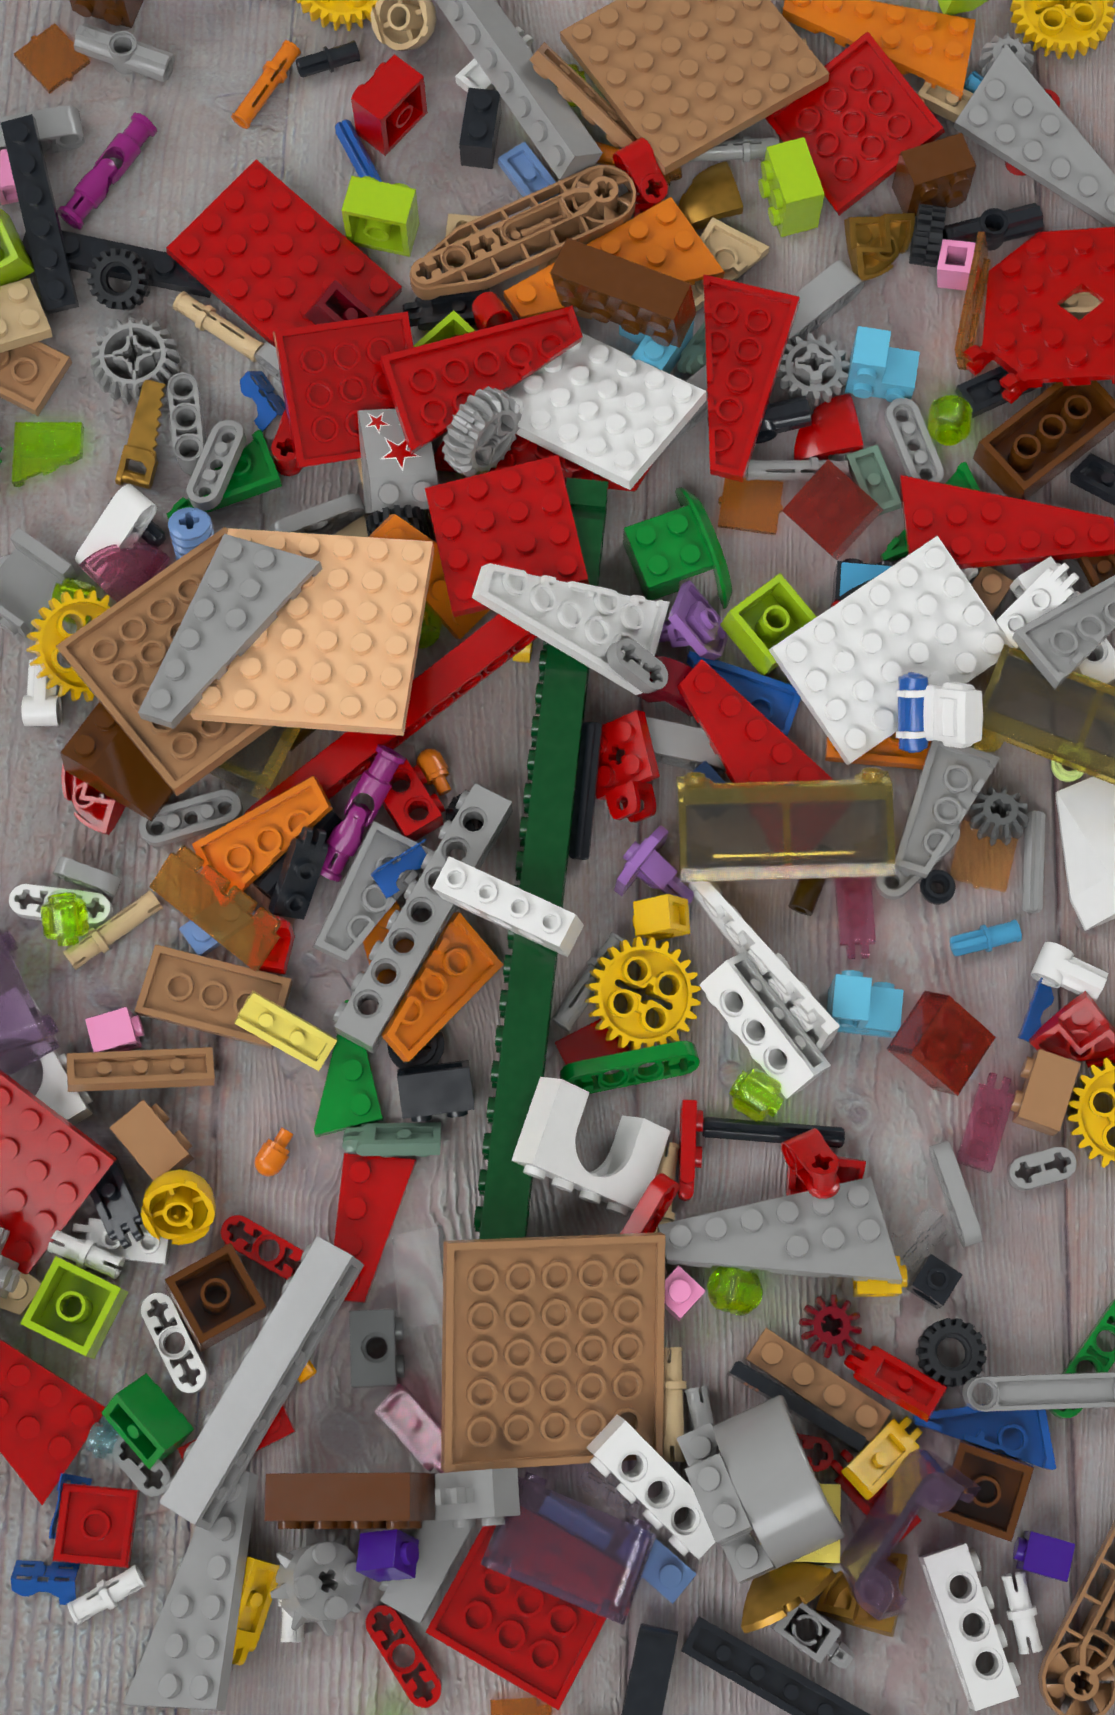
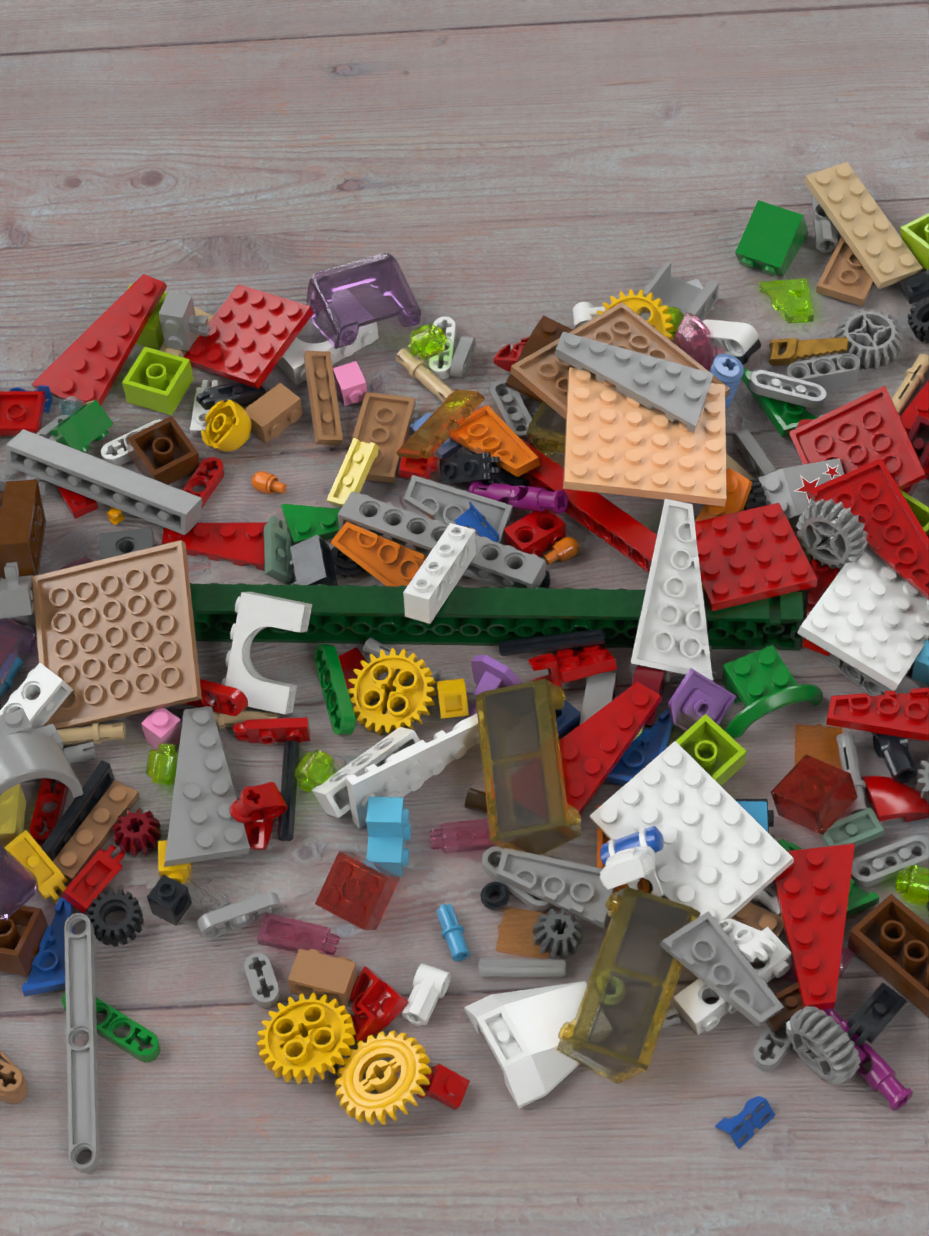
camera: 90 degrees right, 20 degrees down
(86, 1254) = (194, 384): white pin -> none
(637, 665) = (652, 650): light grey beam -> none
(1041, 1000) = (403, 980): blue piece -> none

